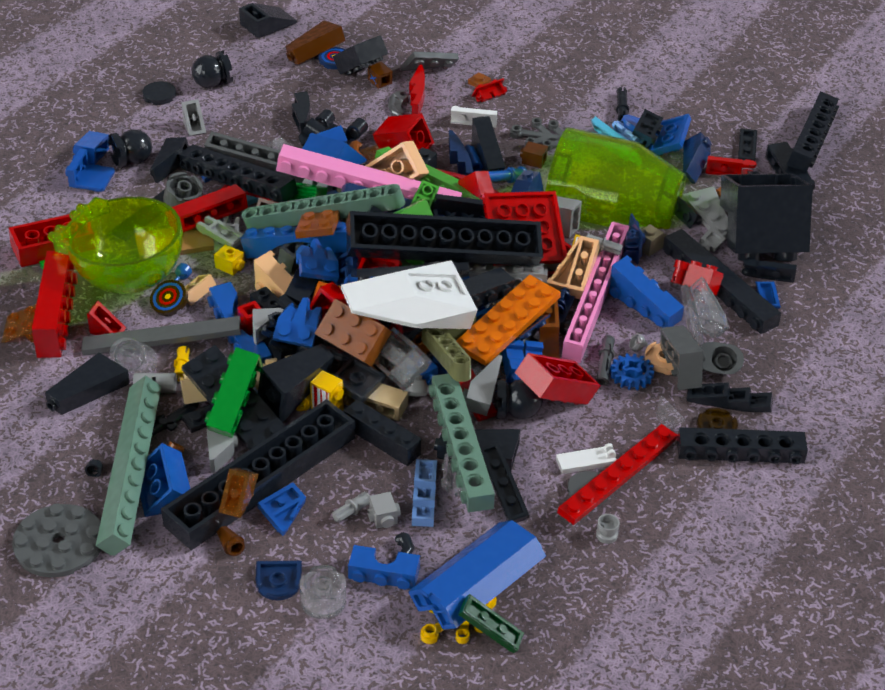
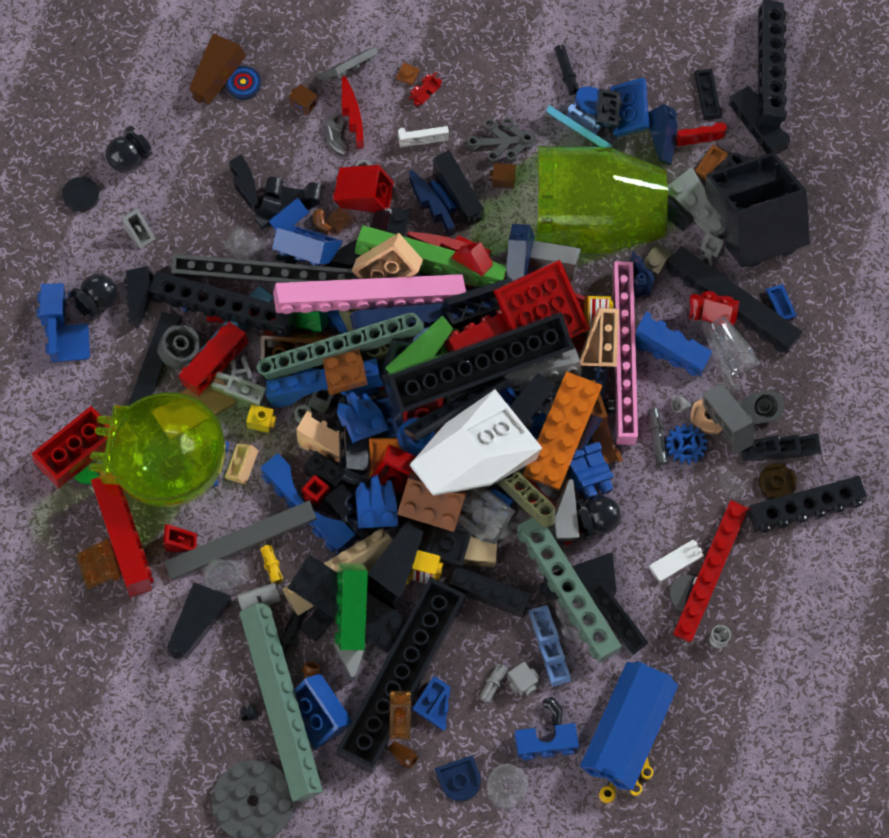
camera: 20 degrees left, 25 degrees up
(168, 297) = (227, 489): dark brown tile -> none
(260, 318) = (335, 500): light grey slope -> none
(264, 19) = (146, 44): black slope -> none
(361, 55) = (278, 85): black brick -> none
(425, 190) = (433, 302): bright green slope -> none
(491, 623) = (658, 774): dark green tile -> none
(508, 175) = (490, 216): blue pin -> none
(557, 379) = (630, 489): red brick -> none
(607, 245) = (618, 301): light grey axle -> none
(769, 270) = (774, 271): black hinge -> none

